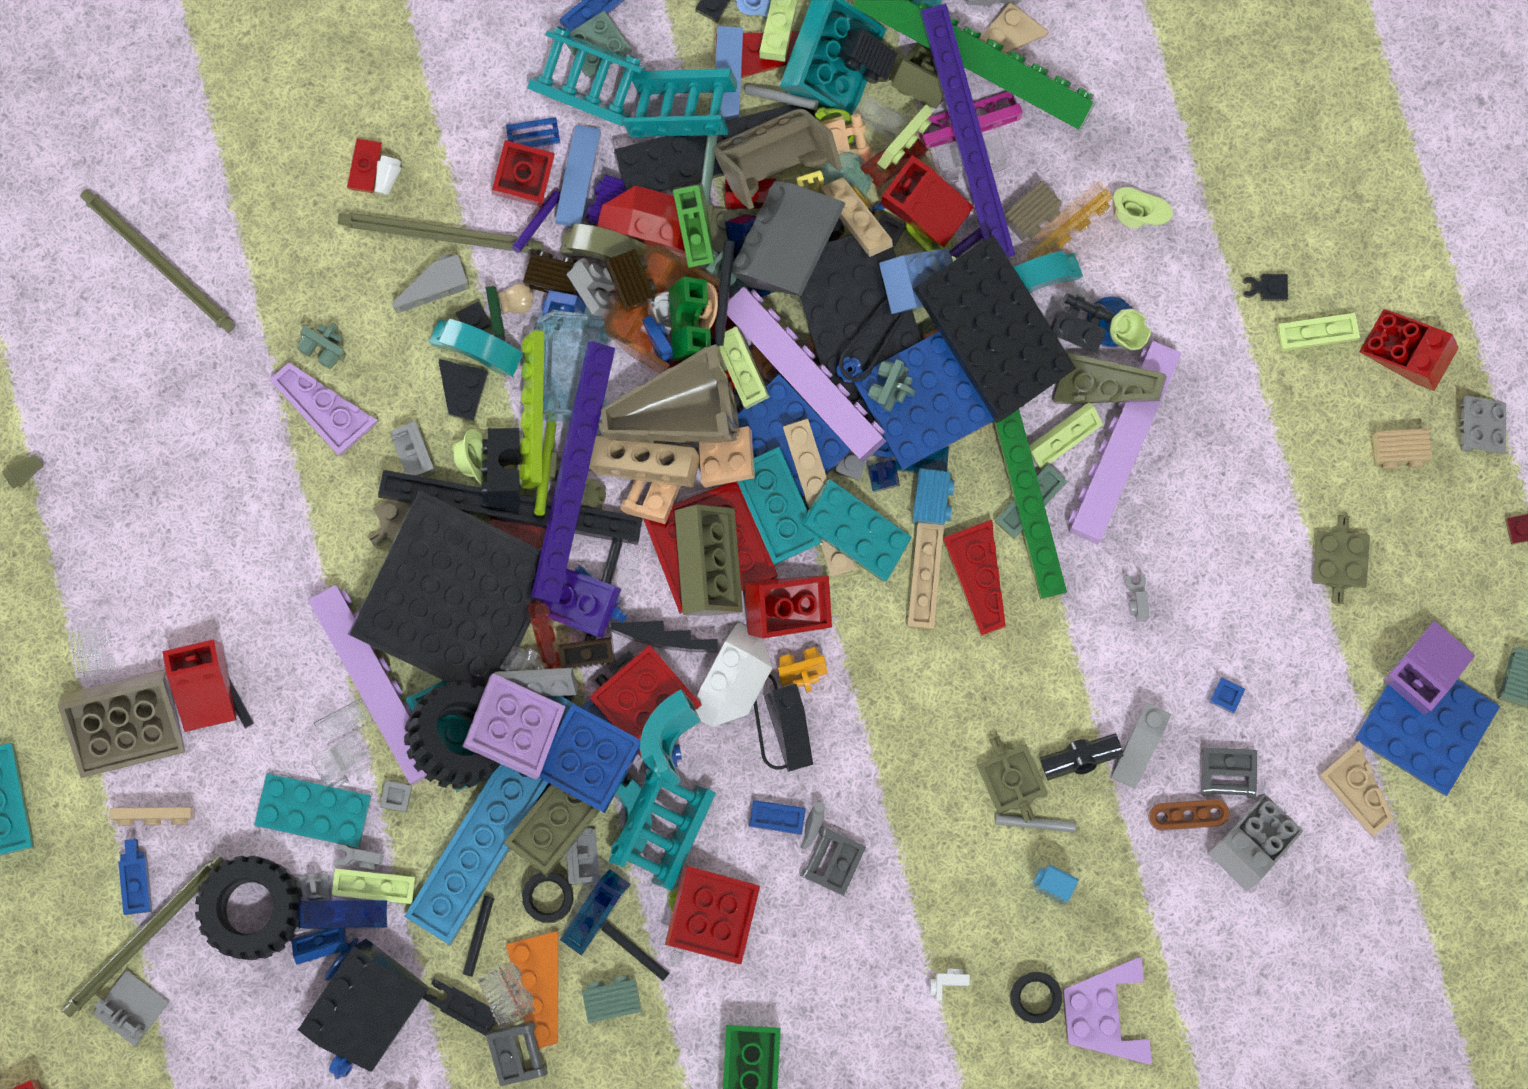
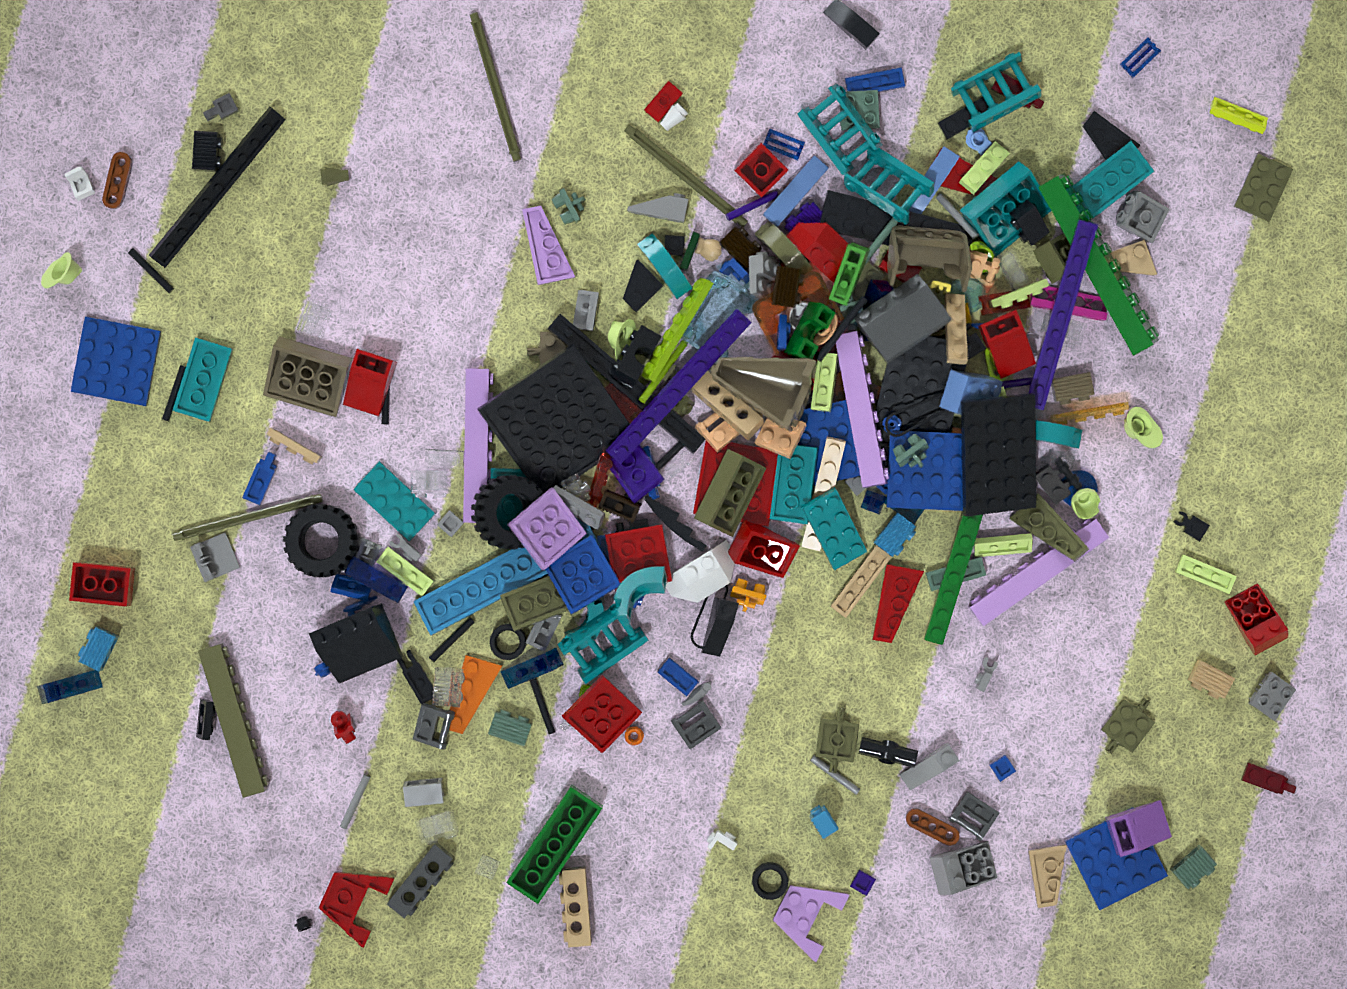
camera: 35 degrees right, 10 degrees up
(758, 920) = (629, 740): none -> orange plate
(1148, 933) = (862, 882): none -> dark purple tile

